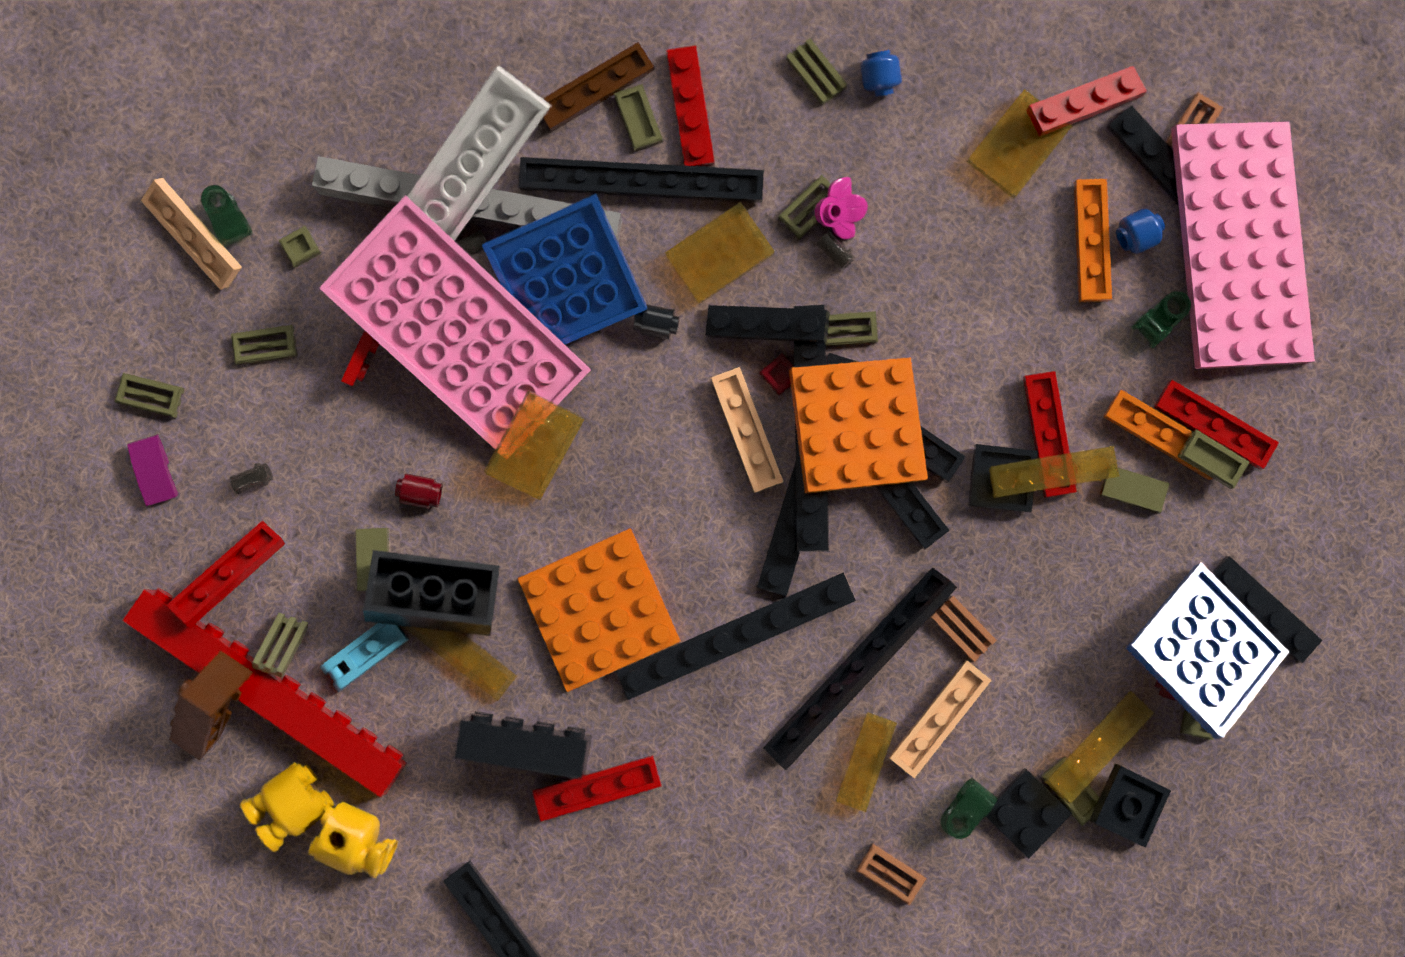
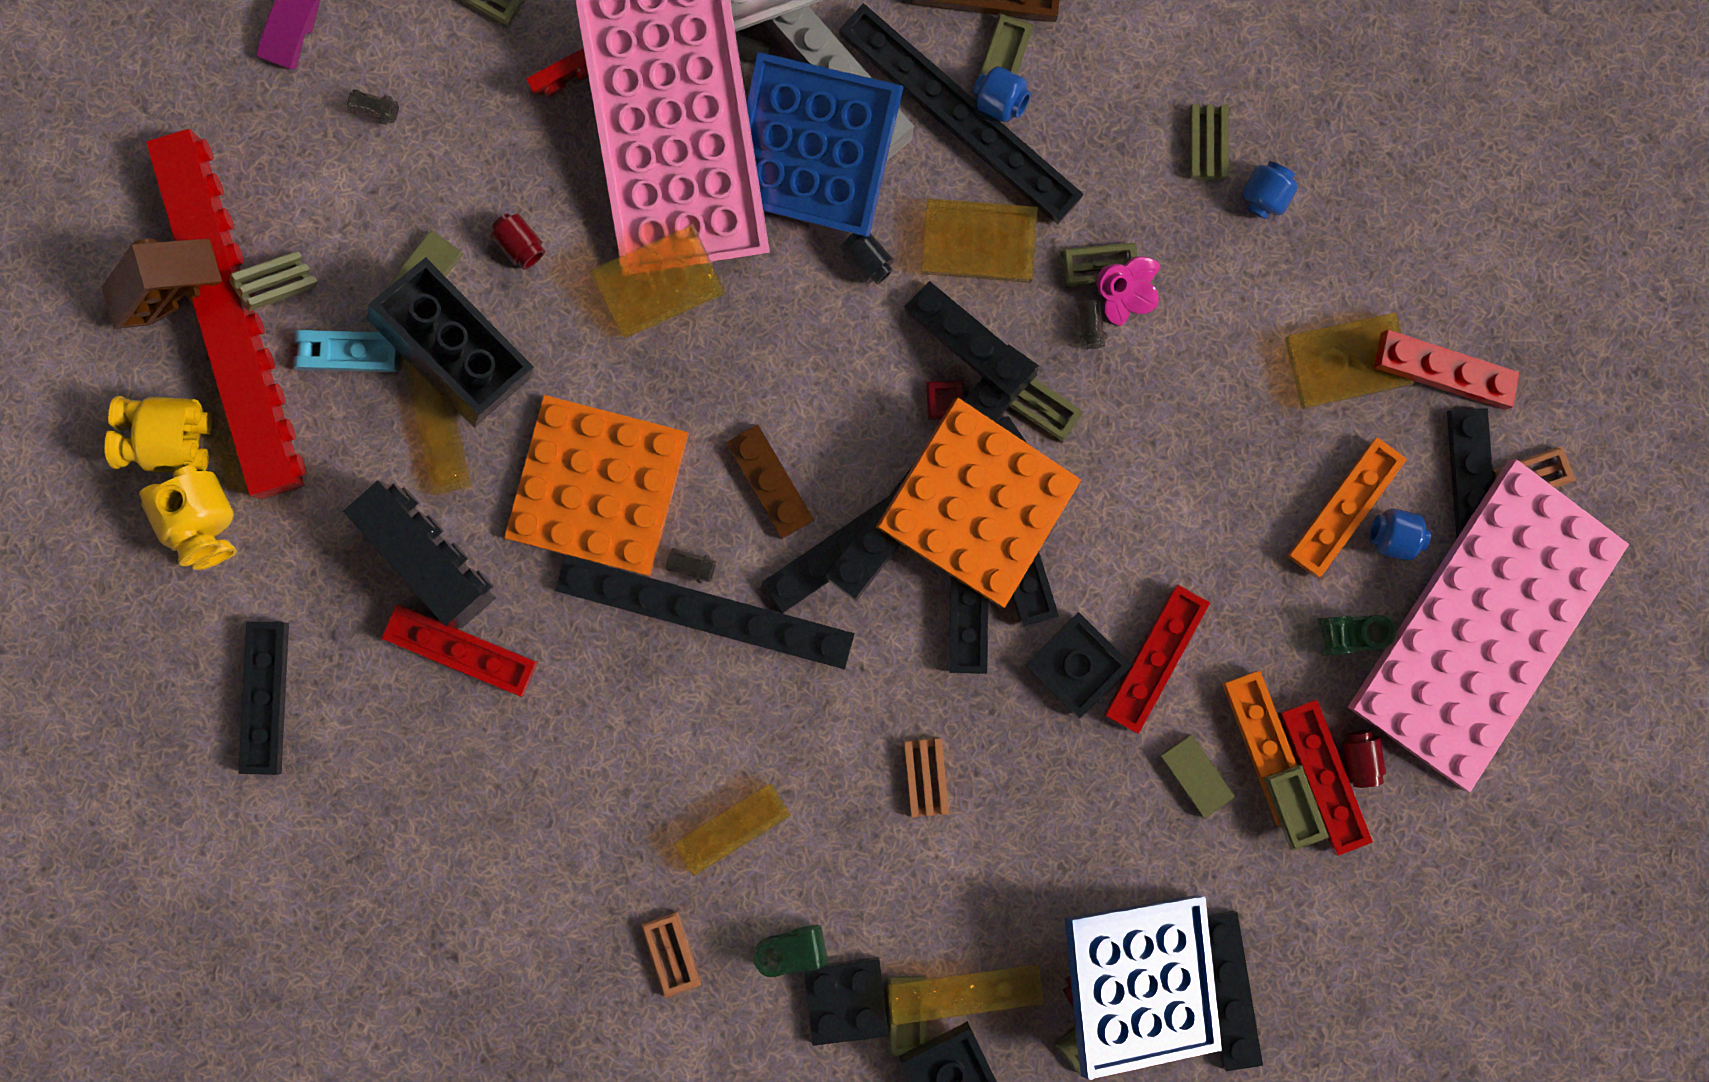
camera: 30 degrees right, 0 degrees up
(225, 574) = (274, 175): red plate -> none
(659, 146) = (1001, 94): none -> blue head
(690, 106) = (1062, 82): red plate -> none
(702, 612) = (691, 565): none -> clear smoke pin
(709, 517) = (770, 481): none -> reddish brown plate
(747, 430) = (871, 426): light nougat plate -> none
(859, 668) = (796, 735): black plate -> none
(940, 719) = (834, 845): light nougat plate -> none
(1053, 471) = (1131, 696): clear yellow plate -> none
(1231, 393) = (1364, 759): none -> dark red brick

